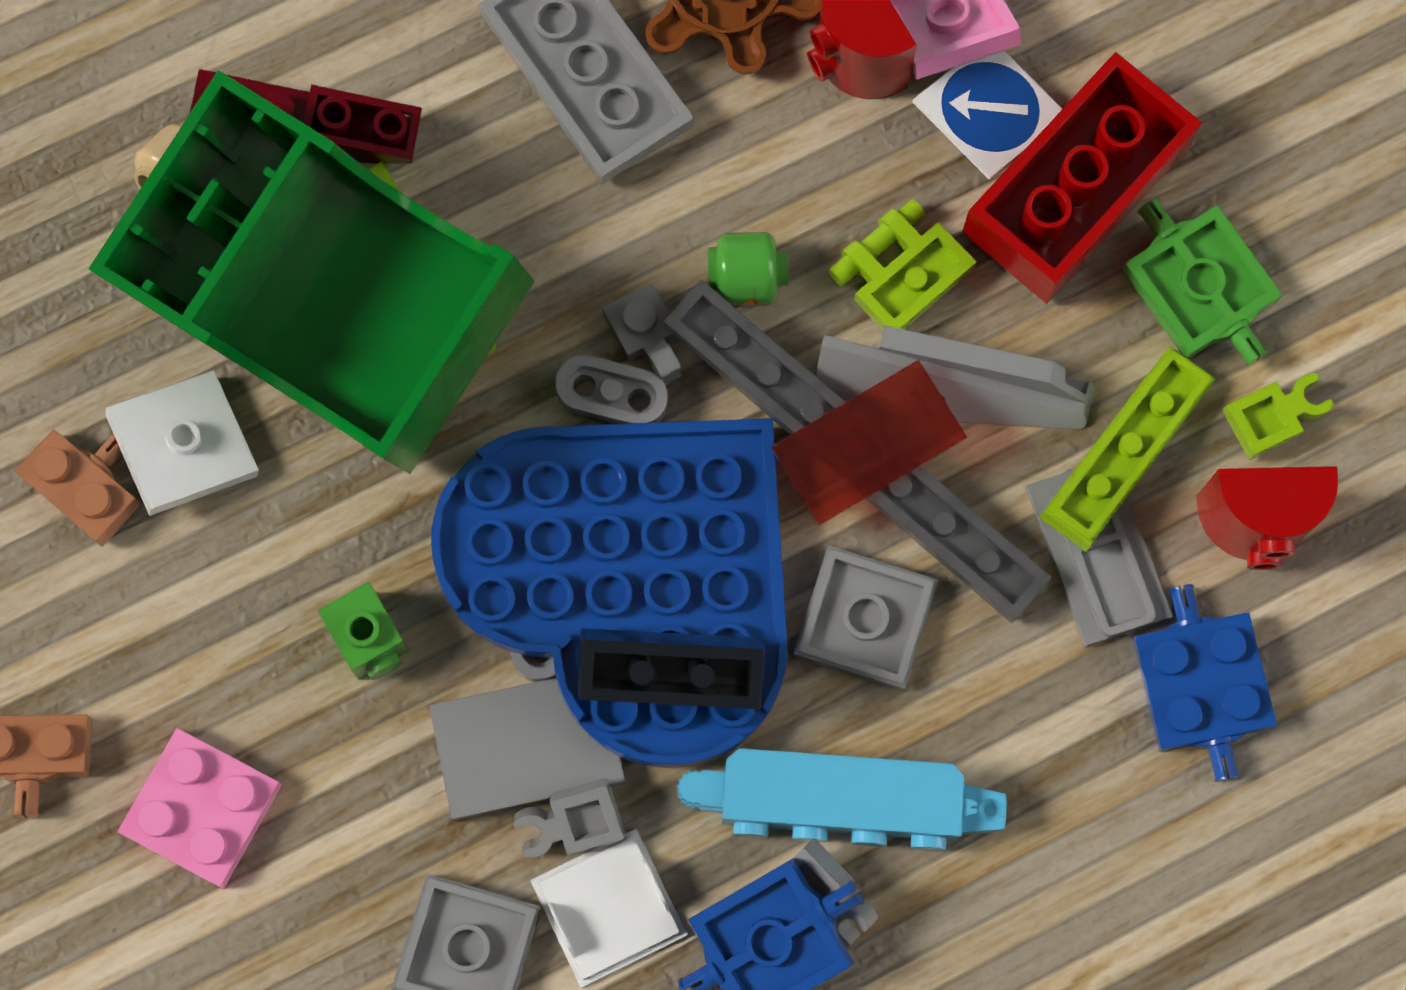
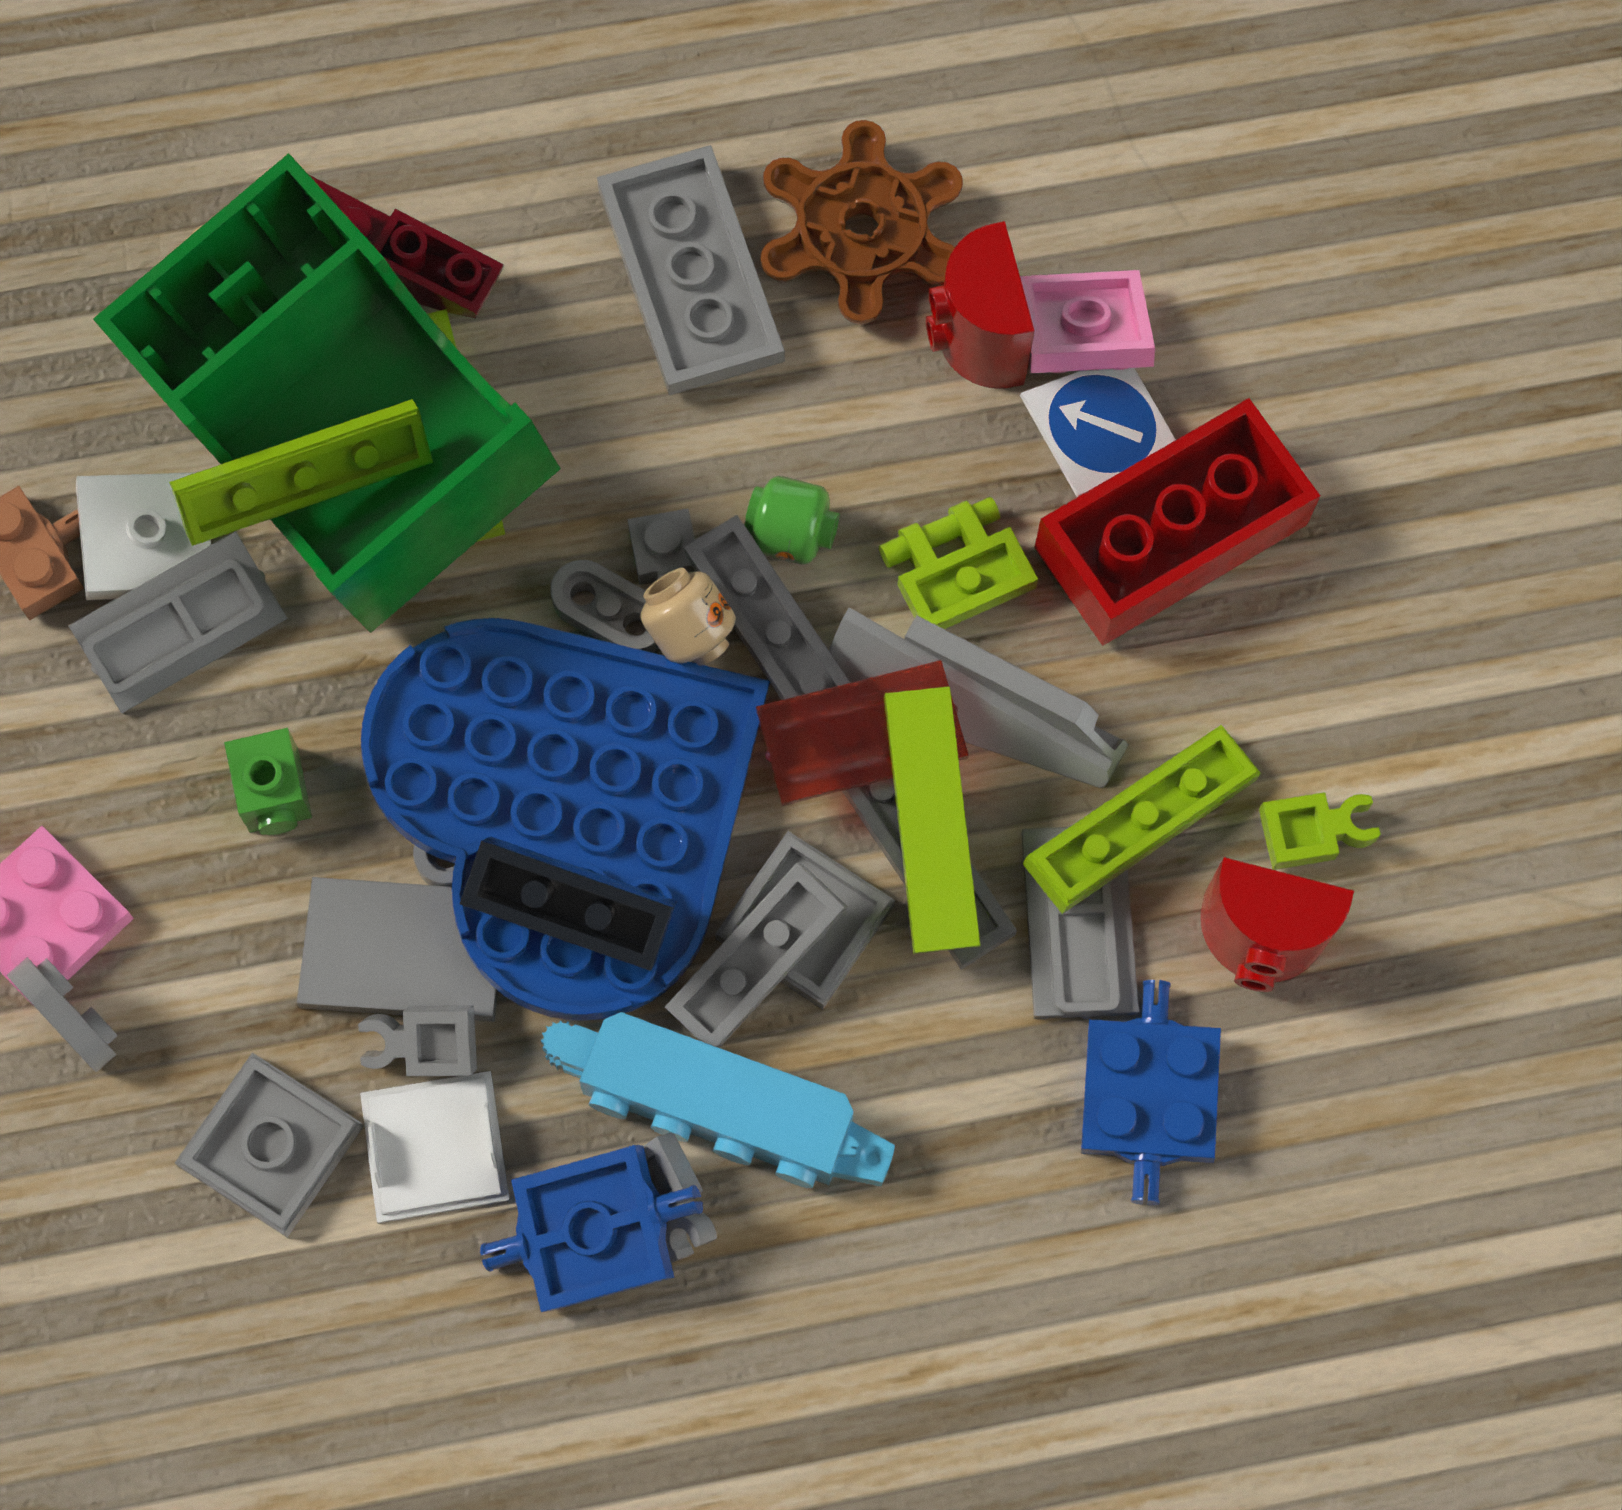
camera: 15 degrees right, 5 degrees down
(233, 874) = (46, 990): none -> light grey plate
(237, 512) = (178, 622): none -> light grey piece
(312, 352) = (301, 472): none -> lime tile
(688, 383) = (687, 617): none -> tan head
(838, 665) = (756, 956): none -> light grey plate
(954, 504) = (931, 820): none -> lime tile
(1201, 282) = (1276, 667): bright green plate -> none

